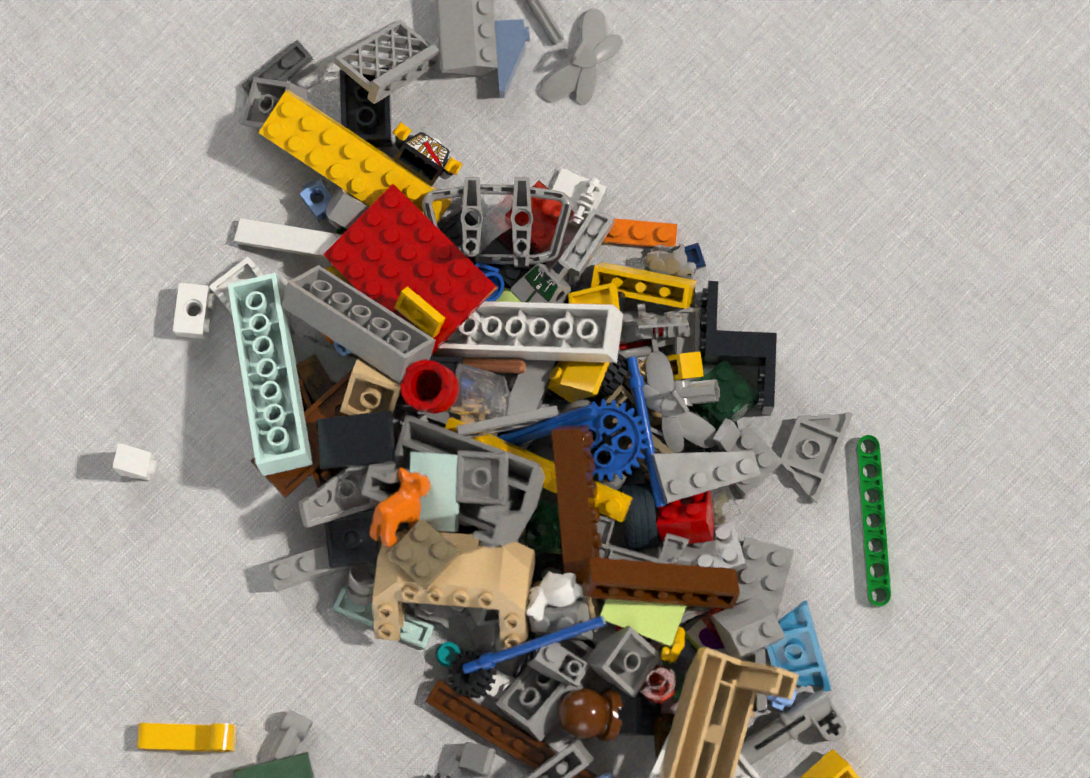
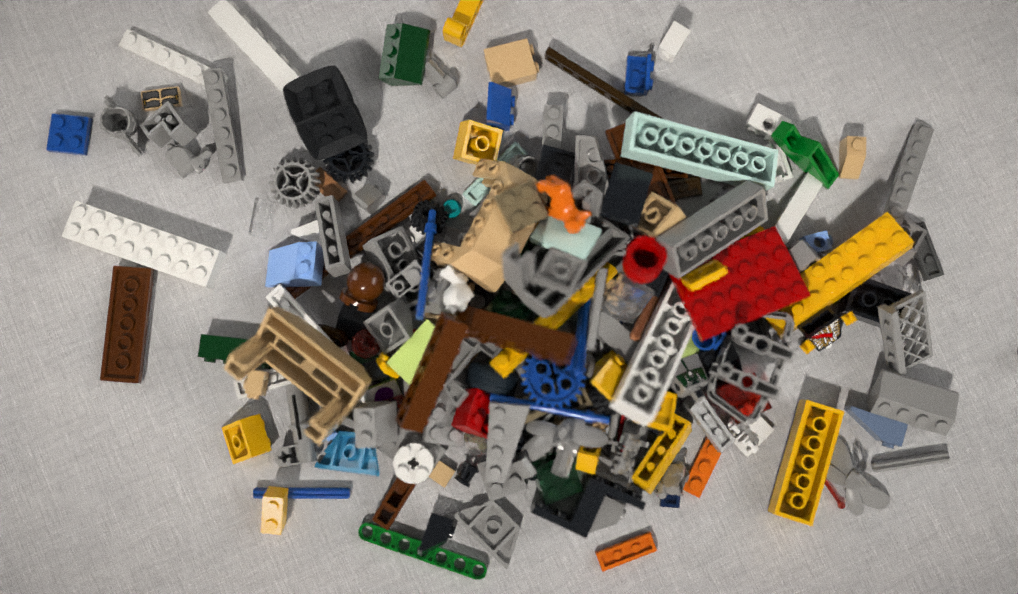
camera: 110 degrees right, 5 degrees up
(189, 489) = (638, 75): none -> blue bracket
(192, 124) = (908, 172): none -> light grey plate
(195, 196) = (851, 156): none -> tan slope
(215, 251) = (805, 153): none -> green slope
(225, 518) = (596, 83): none -> dark brown tile
(235, 653) = (511, 63): none -> tan brick
(299, 644) = (499, 107): none -> blue slope
(355, 653) = (477, 142): none -> yellow slope
(585, 119) = (805, 462): none -> yellow brick
(595, 93) = (841, 505): none -> clear red hinge
(738, 318) = (608, 514): none -> light grey slope
(762, 504) = (466, 474): none -> black bush
(767, 579) = (422, 455): none -> white plate
(774, 284) = (626, 551): none -> orange tile
(775, 533) = (442, 473): none -> tan tile
(827, 575) = (393, 503): none -> reddish brown slope
(845, 511) = (436, 533): none -> black slope
(868, 693) = (308, 493): none -> blue axle
(900, 713) = (274, 510): none -> yellow brick

